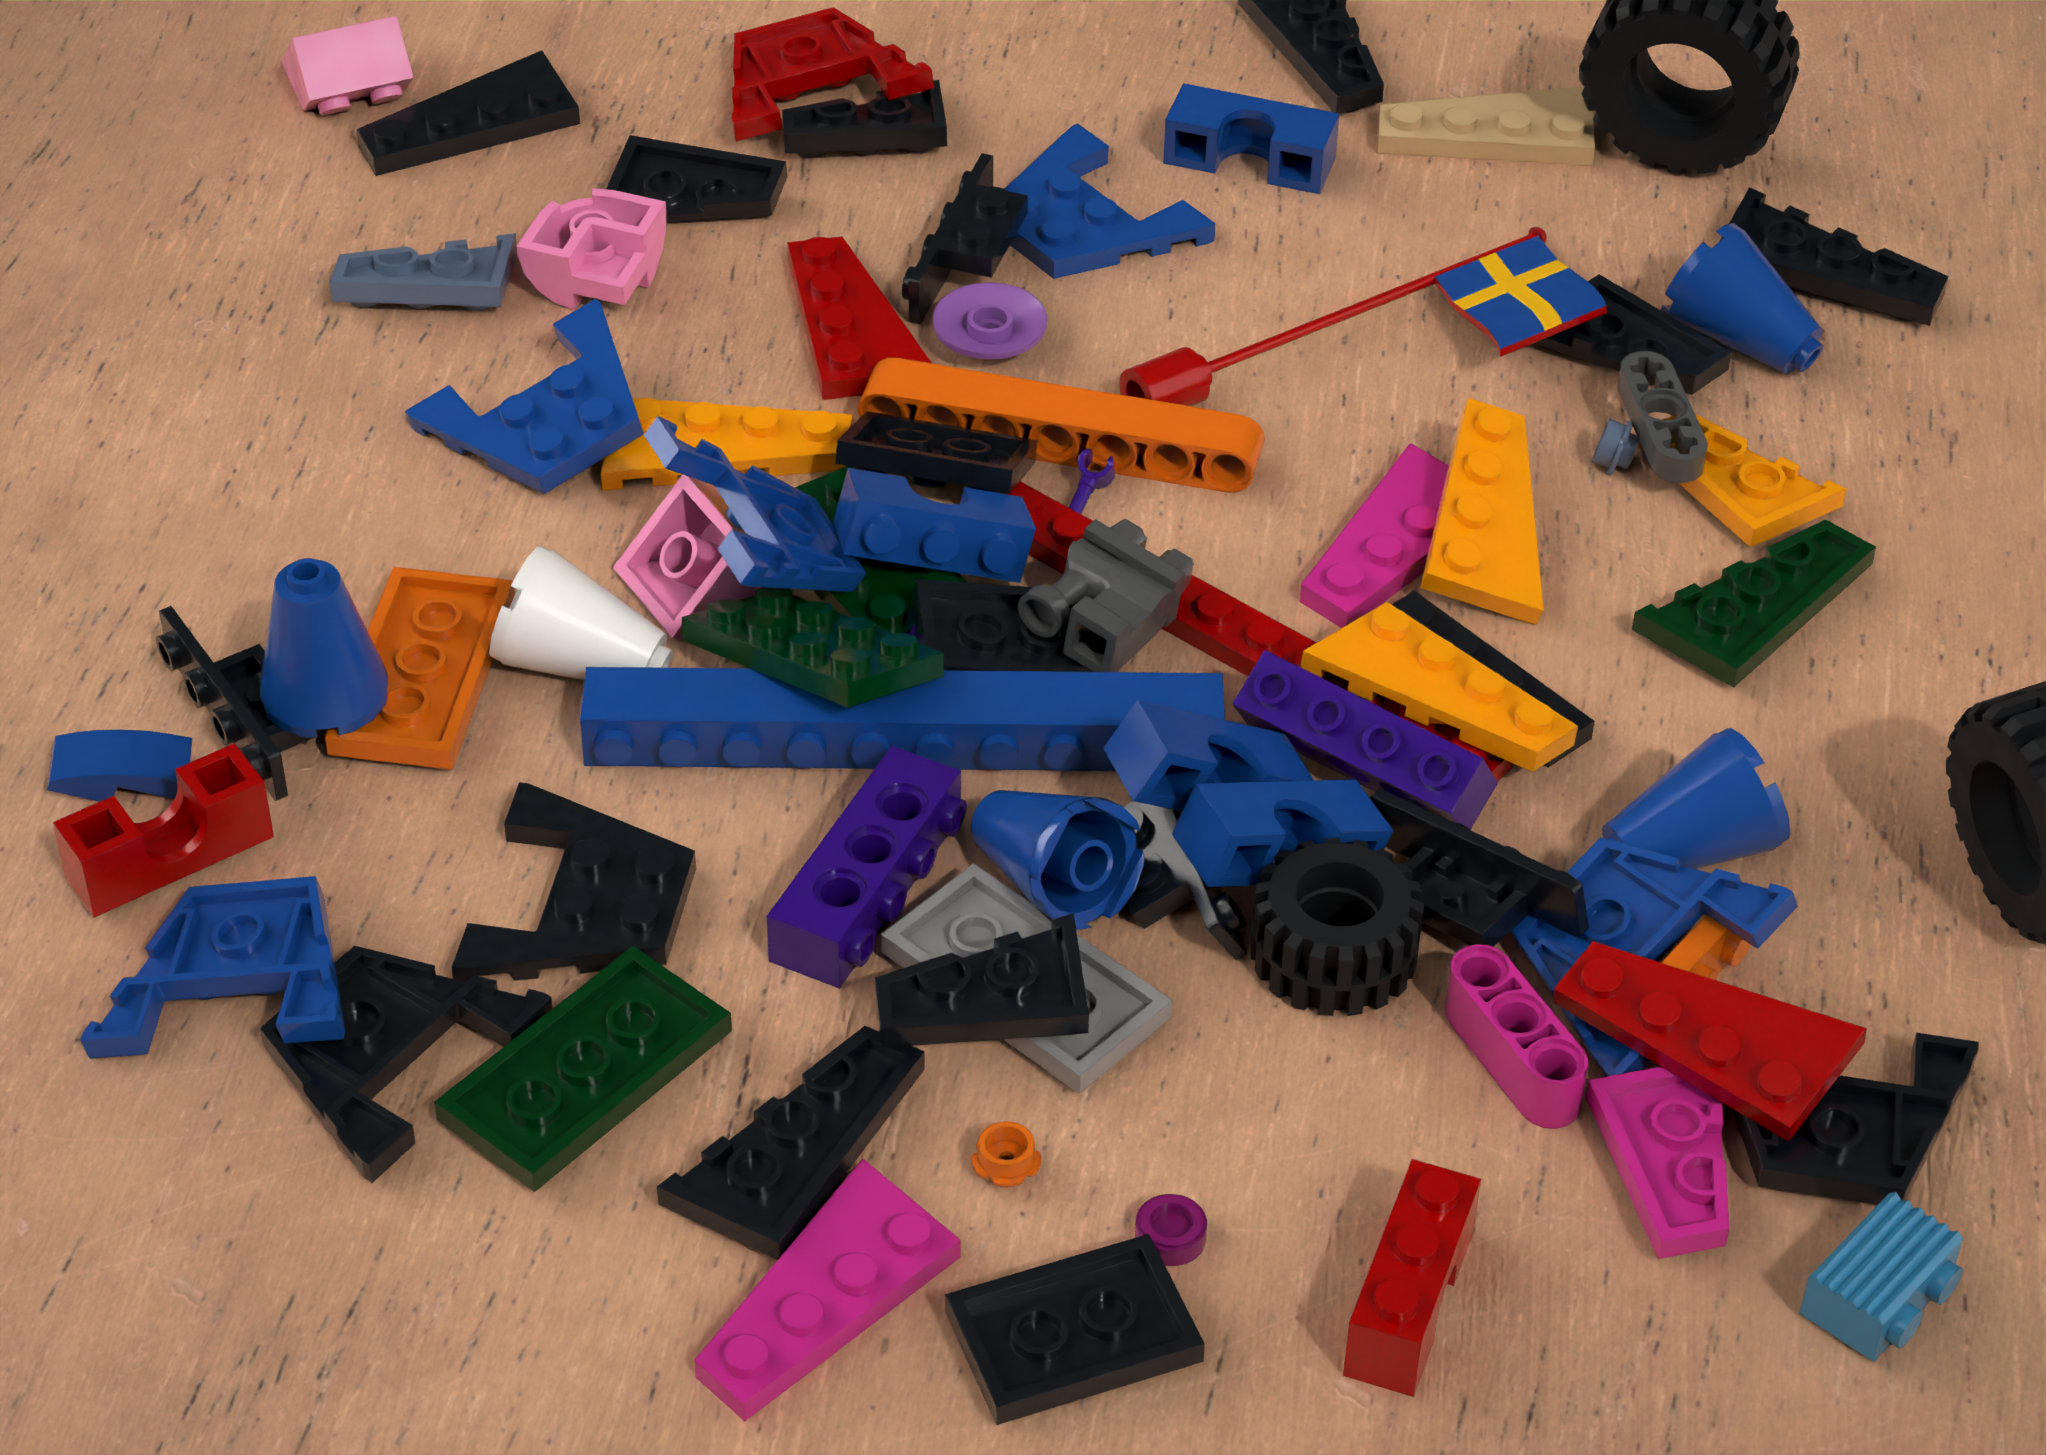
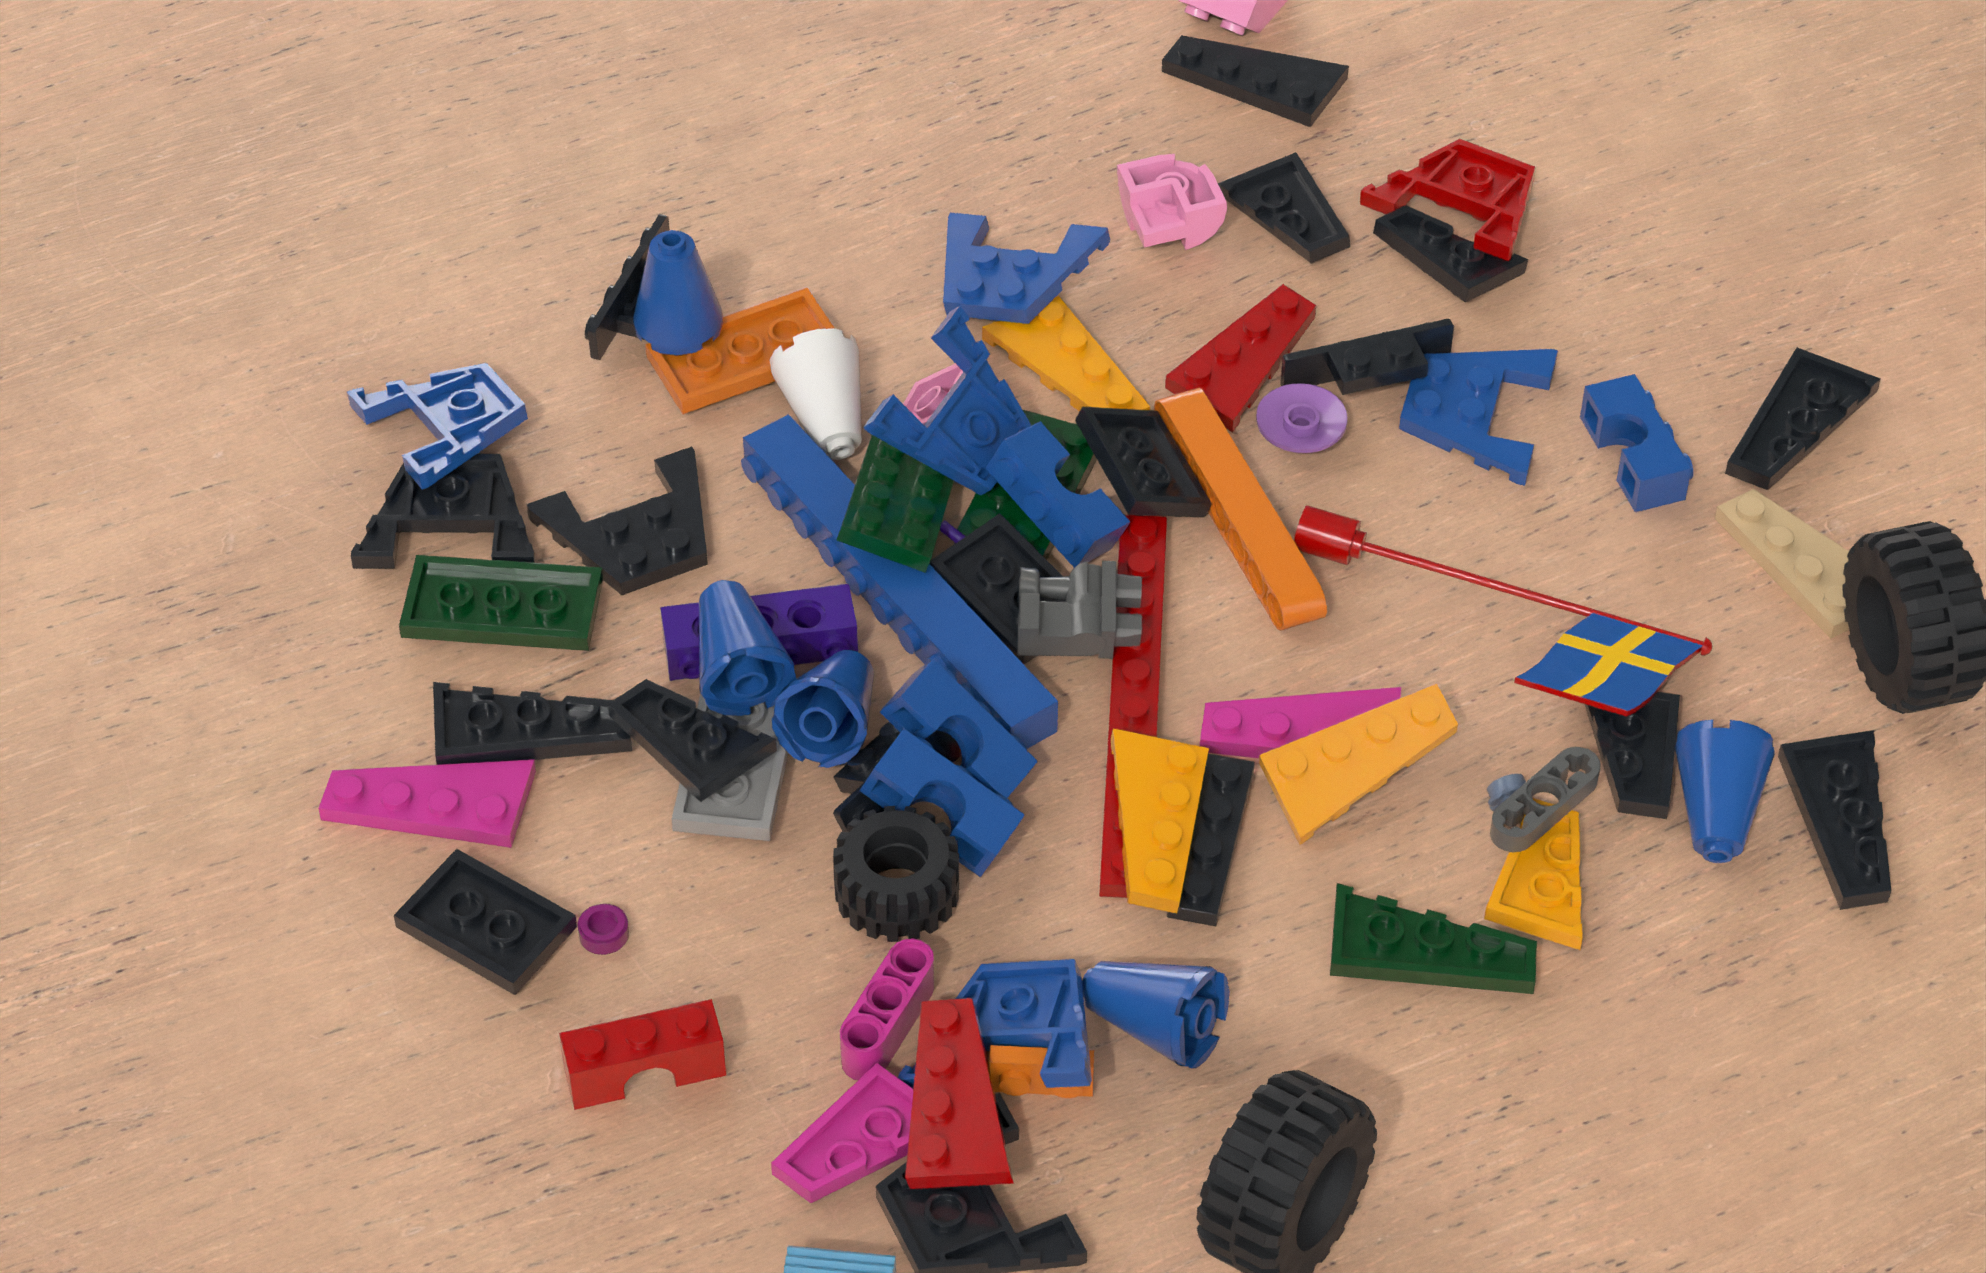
camera: 55 degrees right, 5 degrees up
(101, 760) = (559, 278): blue slope -> none
(215, 815) = (479, 322): red arch -> none
(446, 277) = (1074, 145): sand blue wing -> none
(923, 865) = (738, 652): none -> blue cone
(1010, 1142) = (594, 813): orange plate -> none
(1090, 480) = (1209, 546): dark purple hand -> none
(1365, 740) = (1068, 806): dark purple brick -> none
(1475, 884) = (987, 916): black bracket -> none

